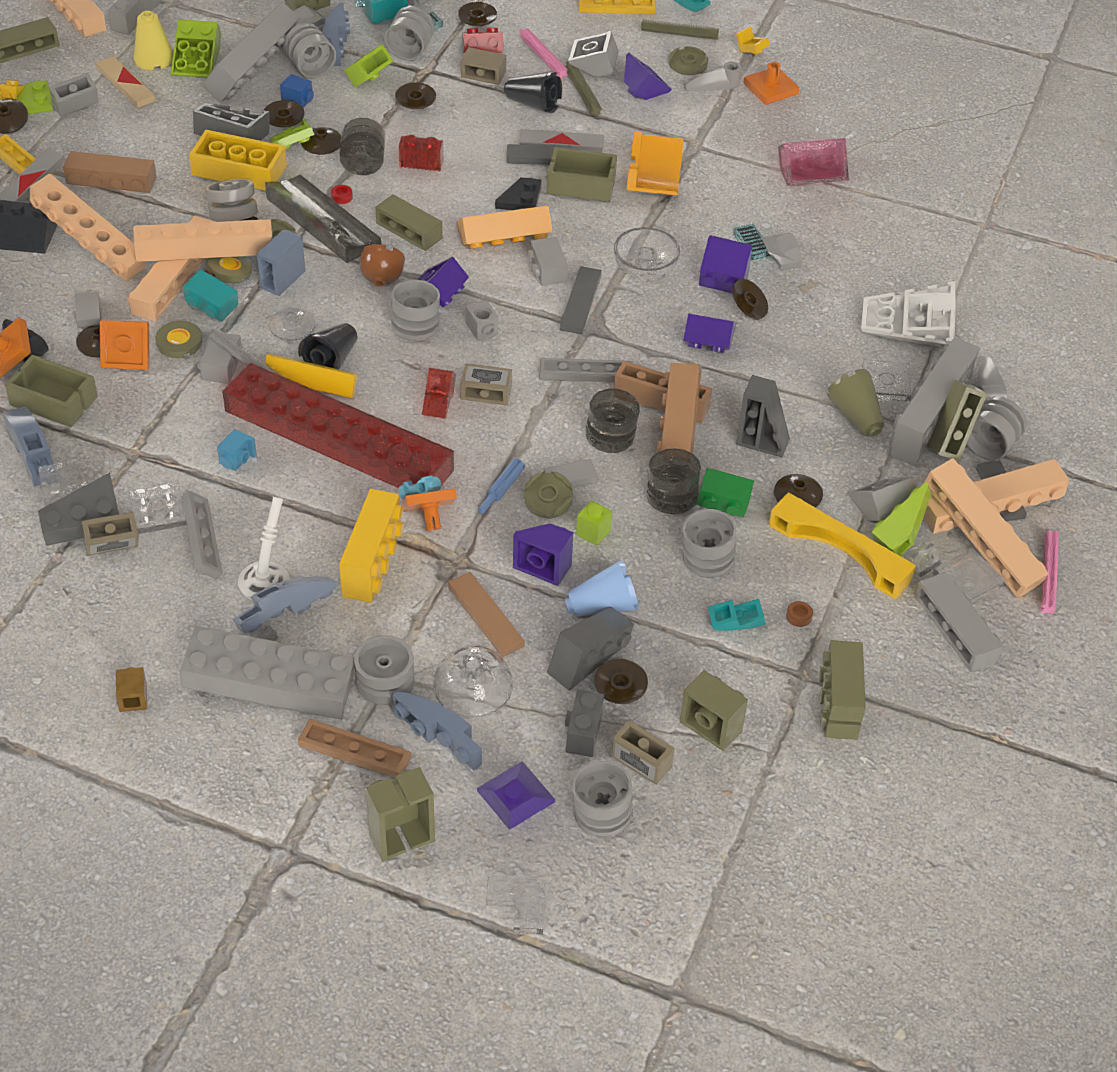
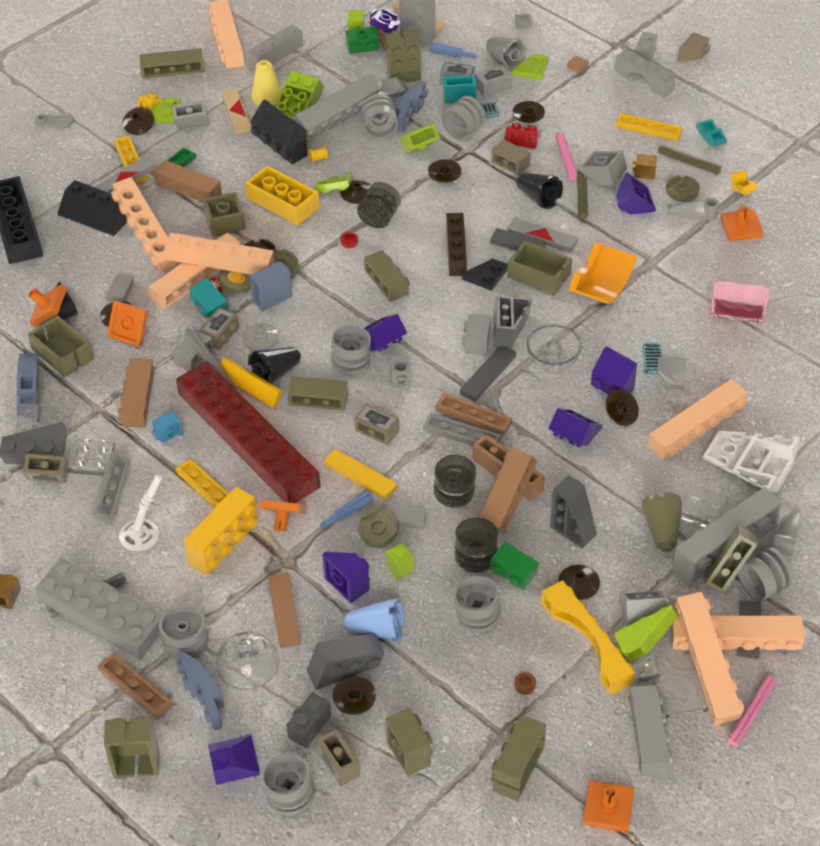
camera: 25 degrees right, 0 degrees up
(86, 144) = (182, 157): none -> green tile
(176, 421) = (137, 393): none -> medium nougat brick
(177, 196) = (224, 214): none -> olive brick
(178, 339) = (171, 327): olive tile -> none
(189, 86) = (279, 132): none -> black slope
(231, 200) = (259, 227): light grey wheel -> none
(232, 122) = (293, 164): dark grey wedge -> none
(242, 320) = (220, 327): none -> dark tan brick
(255, 106) = (318, 154): none -> yellow bush
(285, 113) = (336, 163): dark brown dish -> none
(291, 594) = (149, 552): sand blue slope -> none
(297, 90) = (356, 147): blue brick -> none
(316, 504) = (201, 482): none -> yellow tile
(321, 217) = (325, 256): clear smoke arch -> none
(381, 265) = (345, 307): dark orange cylinder -> none
(397, 367) = (318, 393): none -> olive brick
(421, 153) = (424, 220): clear red brick -> none
(425, 485) = (281, 495): medium azure bar -> none
(438, 393) = (336, 421): clear red arch -> none
(472, 170) = (456, 244): none -> dark brown brick
(494, 443) = (360, 474): none -> yellow tile
(505, 226) = (457, 297): light orange slope -> none
(577, 235) = (509, 318): none -> dark grey wedge
(589, 346) = (473, 414): none -> medium nougat plate
(638, 44) = (645, 166): none -> pearl gold brick
(730, 617) = (469, 669): teal slope -> none
(835, 292) = (697, 419): none -> light nougat brick
(956, 713) = (608, 806): none -> orange tile

